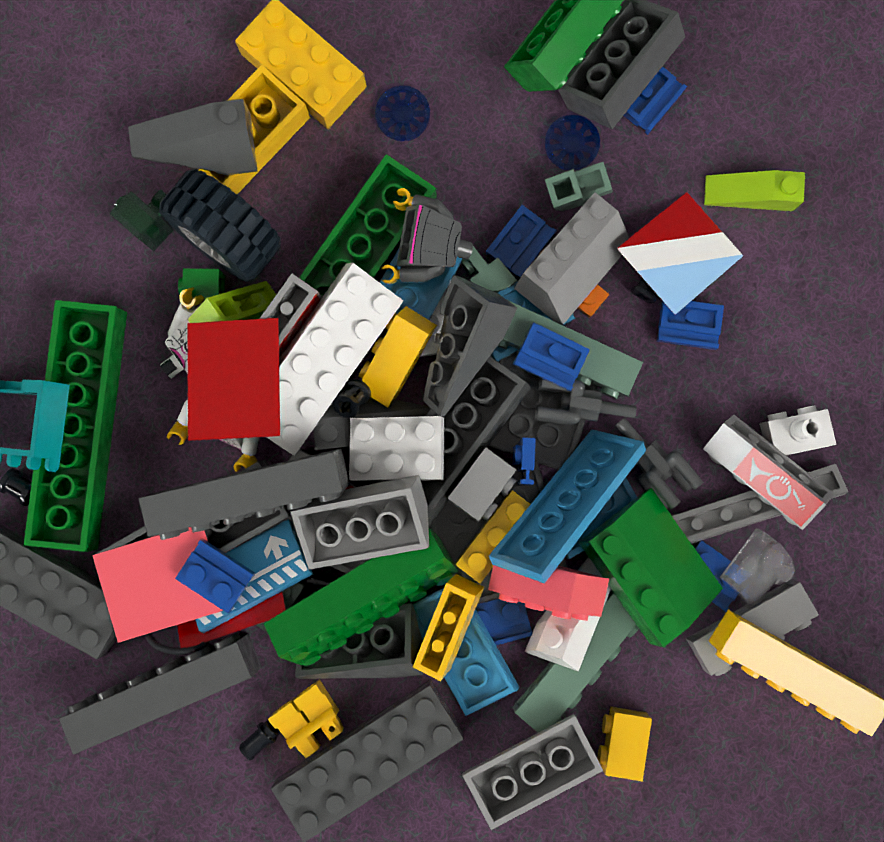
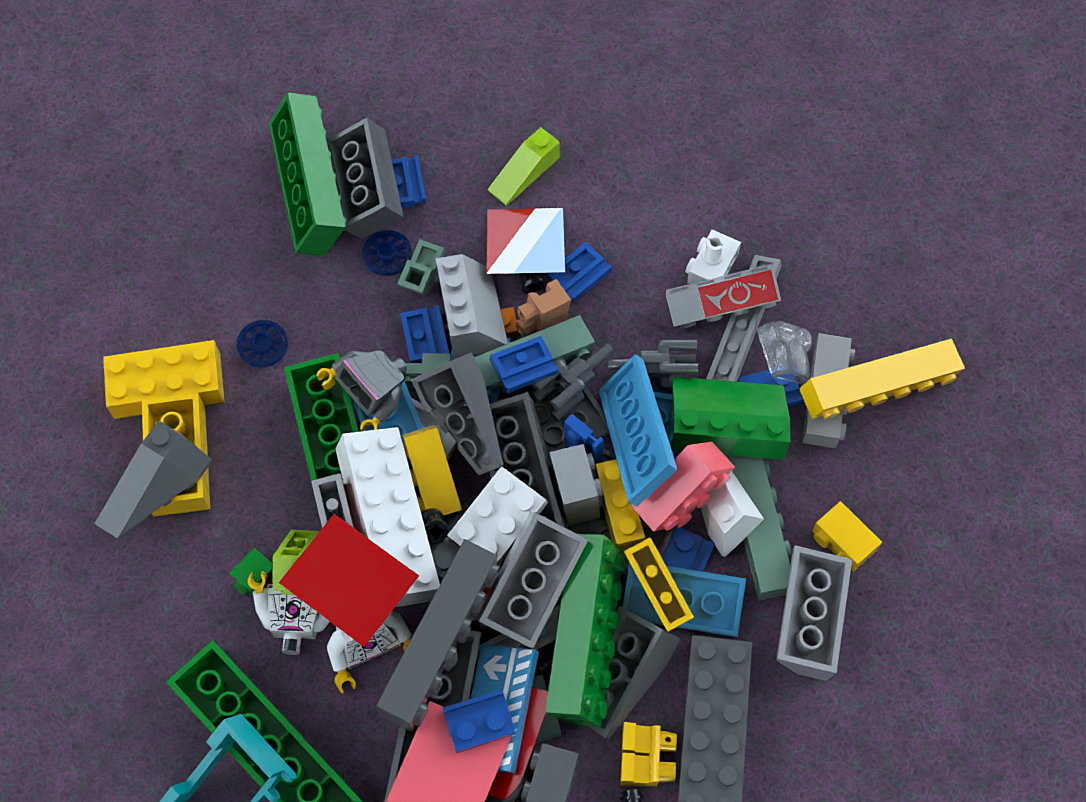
camera: 55 degrees left, 20 degrees down
(143, 219) = (167, 572): clear green brick -> none
(220, 225) = (227, 513): black wheel -> none
(620, 329) = (543, 310): none -> nougat hips

